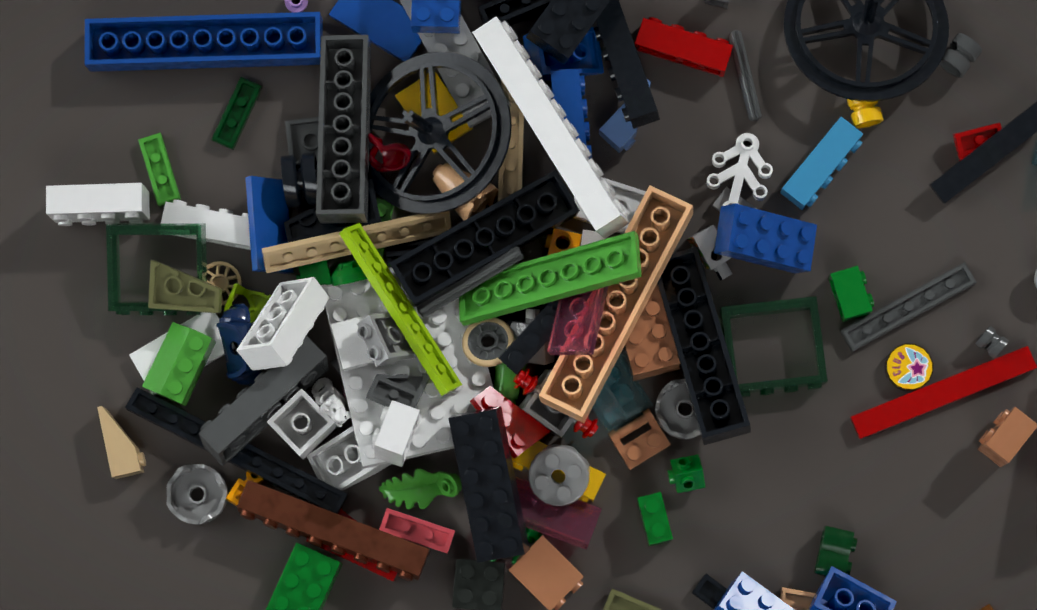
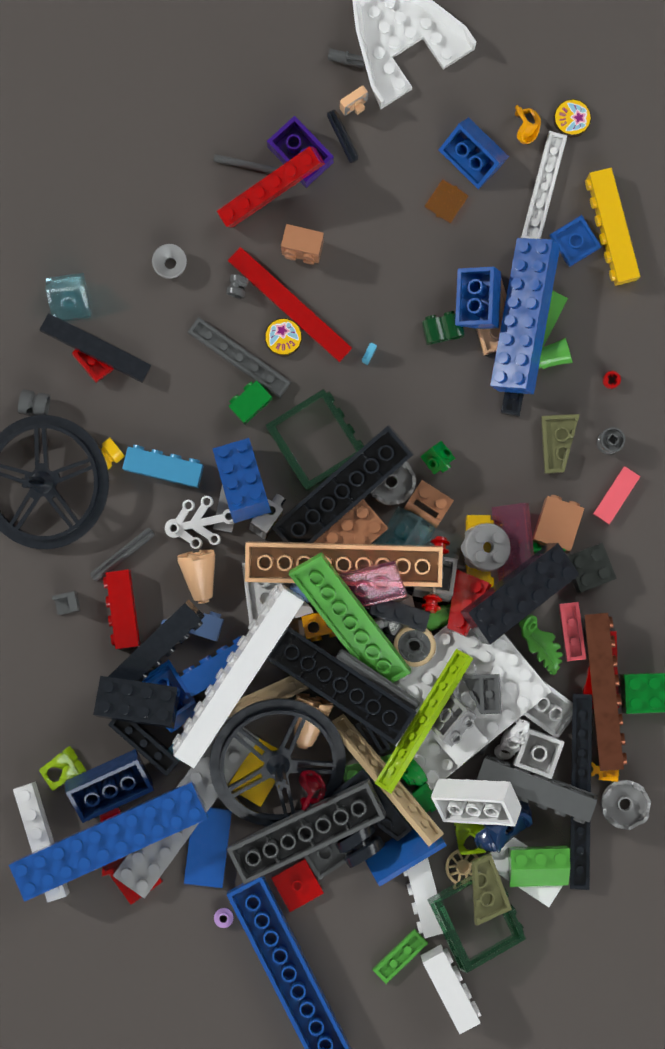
camera: 125 degrees left, 5 degrees up
(121, 451) = (620, 877): tan slope -> none
(237, 113) = (330, 919): dark green tile -> none
(291, 95) = (297, 885): none -> red plate
(396, 433) = (519, 677): white brick -> none
(654, 519) = (481, 465): green brick -> none
(684, 146) = (199, 573): none -> light nougat cone
(846, 457) = (369, 353): none -> medium azure tile

